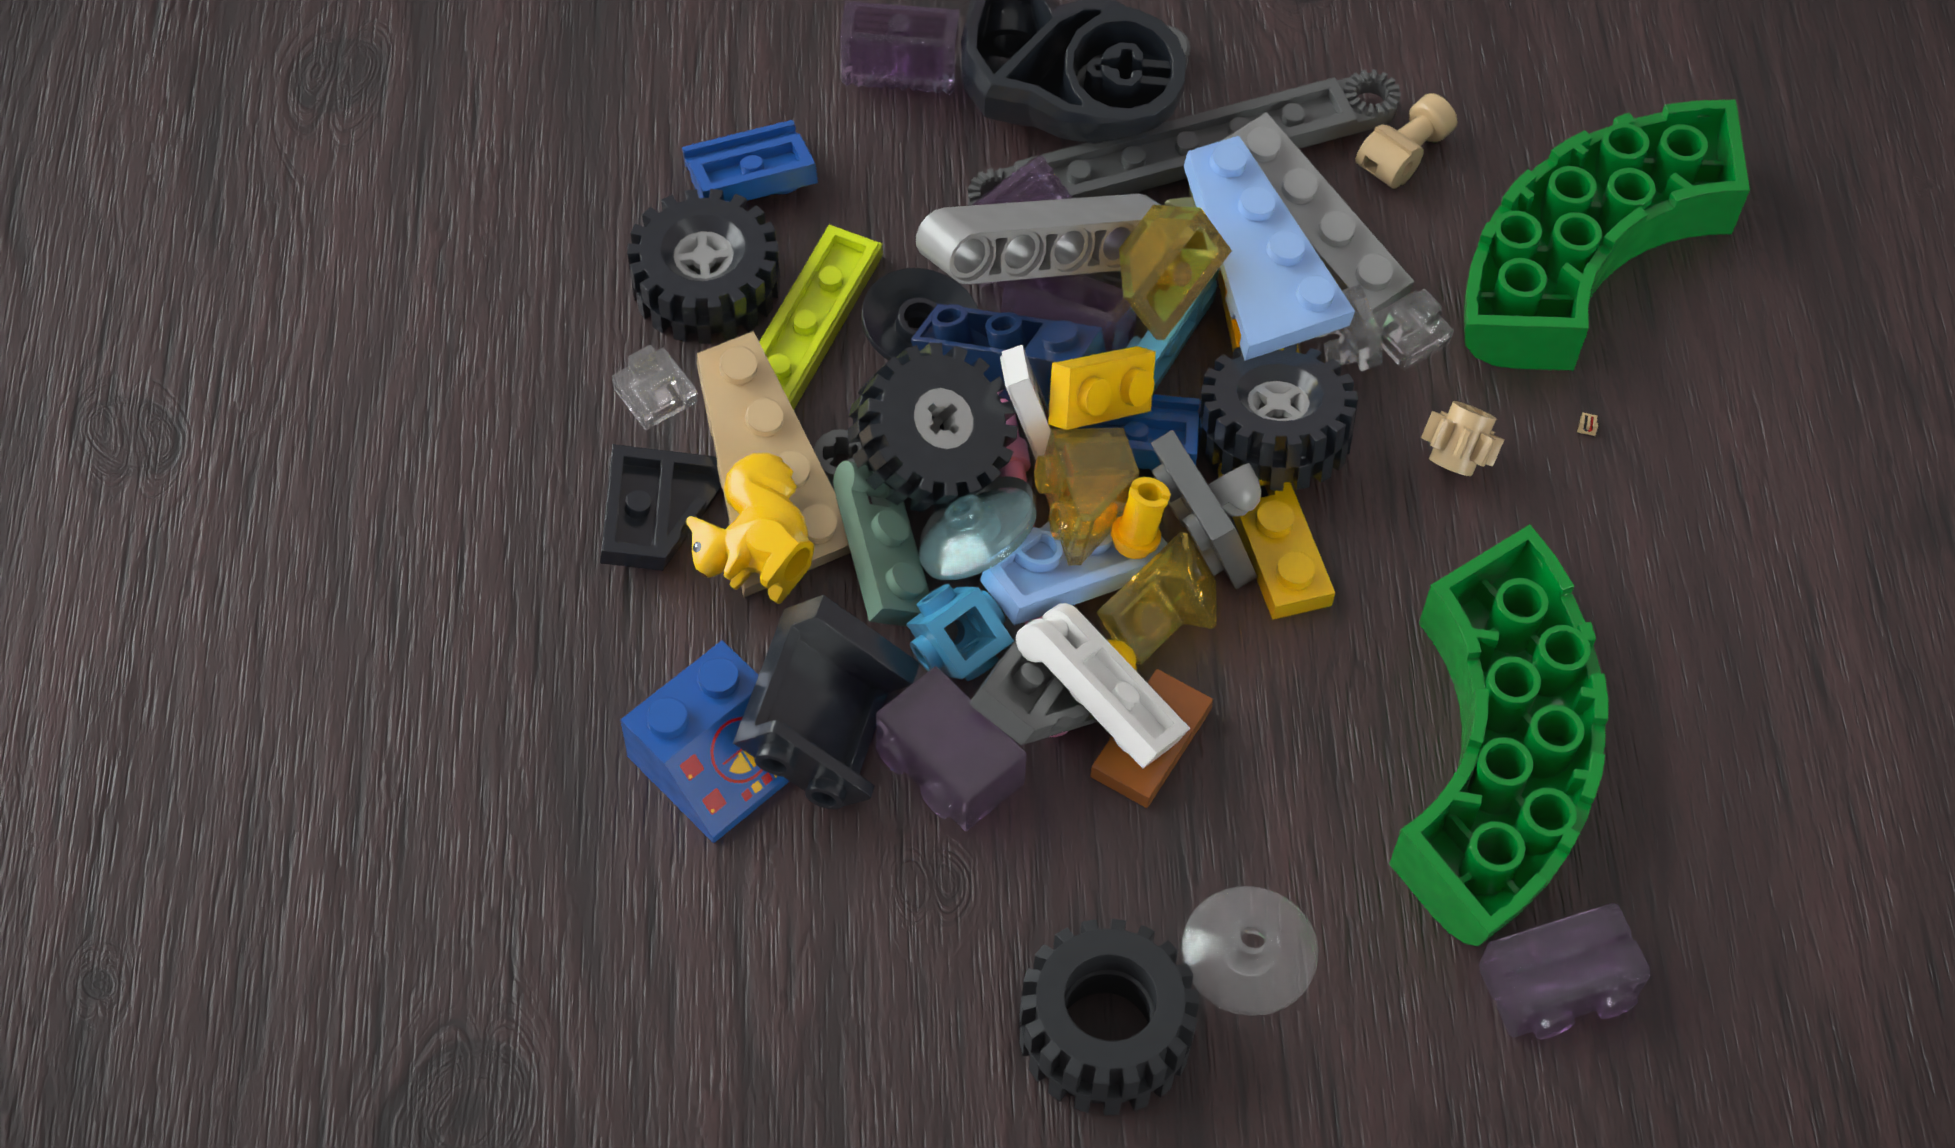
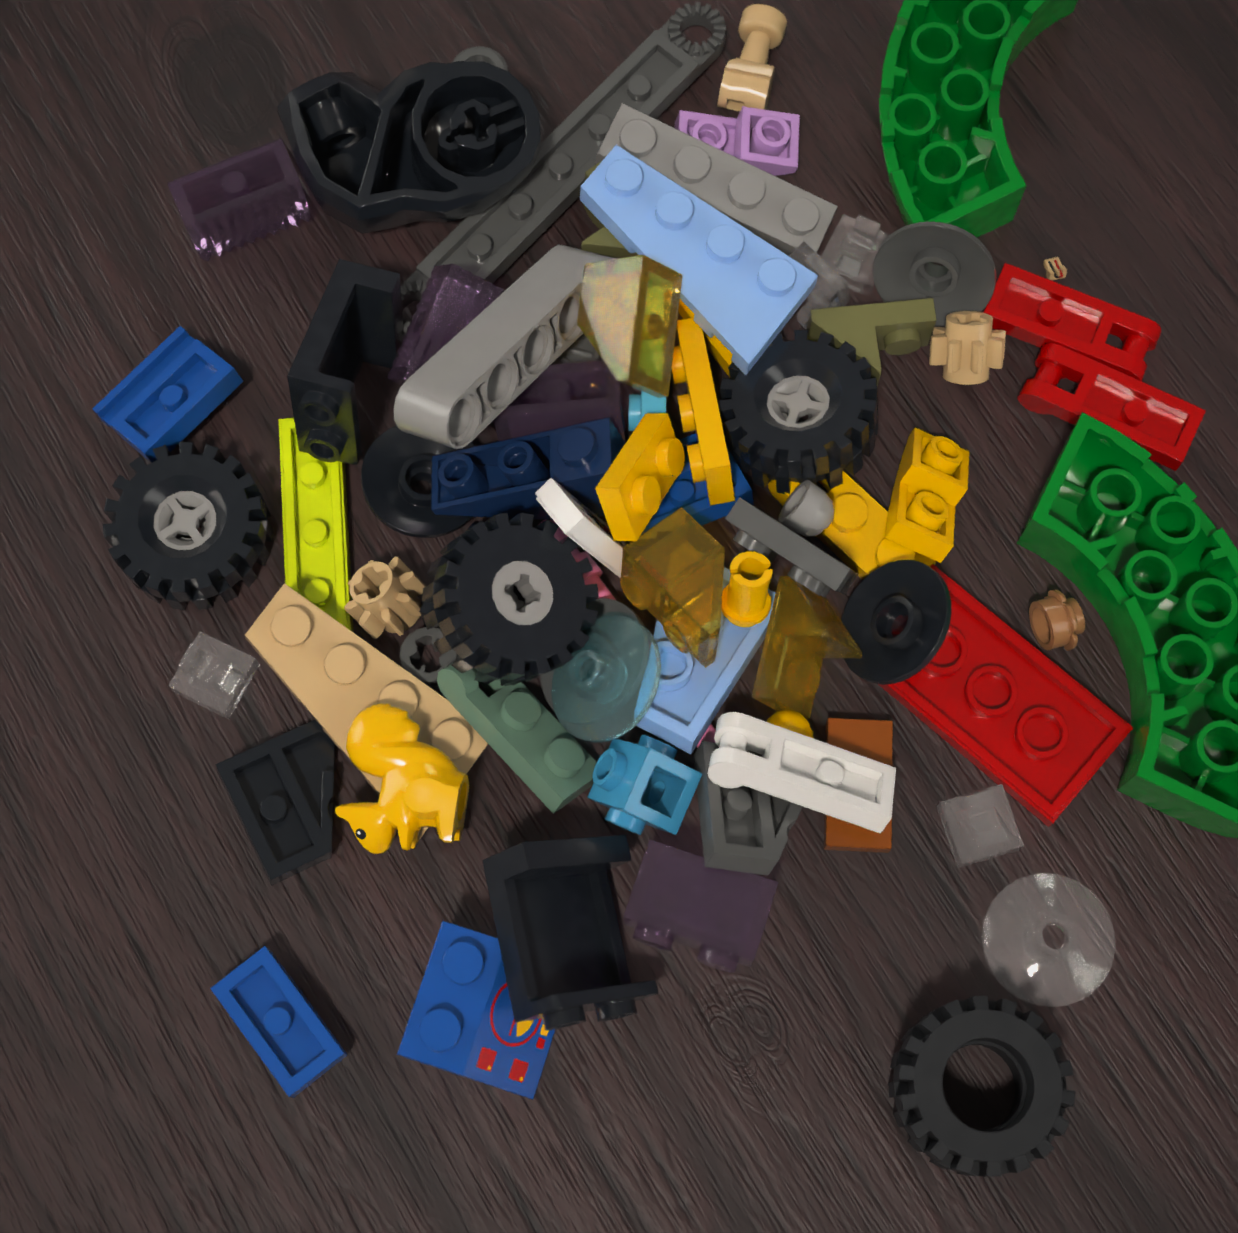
camera: 25 degrees left, 15 degrees up
(540, 666) = (279, 1022): none -> blue plate
(829, 390) = (385, 597): none -> tan gear
(902, 183) = (352, 325): none -> black panel
(1203, 343) = (701, 413): none -> yellow plate
(1242, 823) = (979, 826): none -> clear tile
(1260, 610) = (897, 621): none -> black dish
(1317, 727) = (1011, 709): none -> red tile
(1355, 536) = (925, 494): none -> yellow slope
(1376, 199) = (756, 136): none -> lavender slope
(1388, 388) = (875, 327): none -> olive slope
(1414, 694) = (1056, 621): none -> medium nougat plate
(1444, 364) = (906, 269): none -> dark grey dish
(1573, 469) = (1053, 313): none -> red plate
(1602, 576) = (1136, 409): none -> red plate

